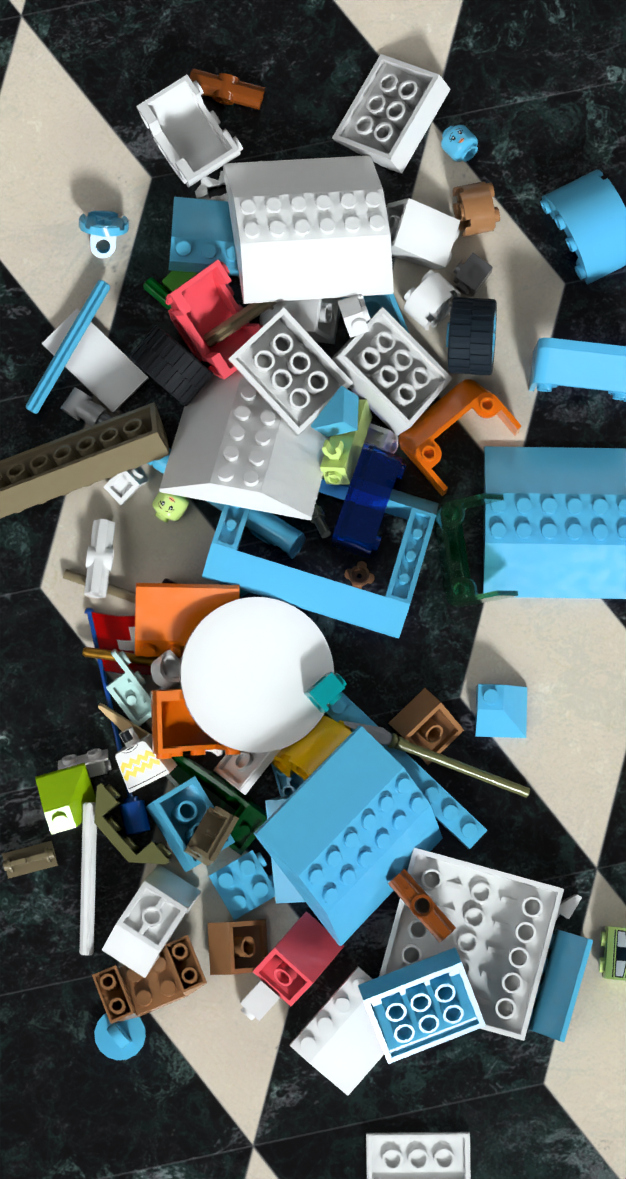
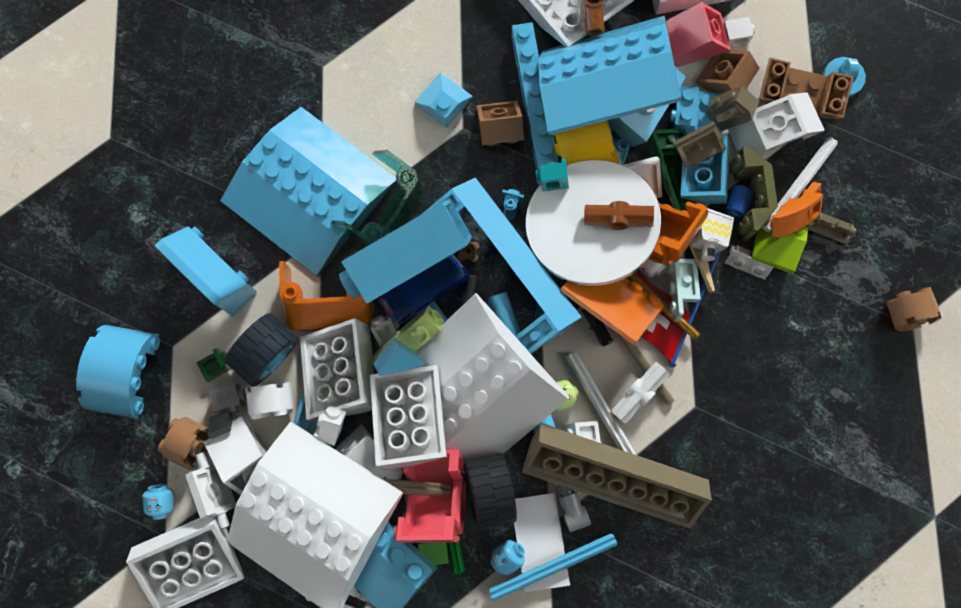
camera: 140 degrees left, 5 degrees down
(69, 836) = (798, 212): none -> orange slope
(113, 325) = (508, 557): none -> medium azure head
(127, 522) = (599, 403): none -> white axle
(166, 670) = (650, 275): white piece -> none
(206, 901) = (732, 108): none -> dark tan window
(235, 691) = (619, 215): none -> dark orange piece
(351, 647) = (512, 201): none -> medium azure hinge
(398, 507) = (405, 252): none -> medium azure brick
(402, 744) = (537, 125): olive piece -> none
(417, 183) = (209, 492): none -> white plate
(457, 246) = (220, 424): none -> pearl dark grey tile
(509, 294) = (213, 365): none -> dark green bracket

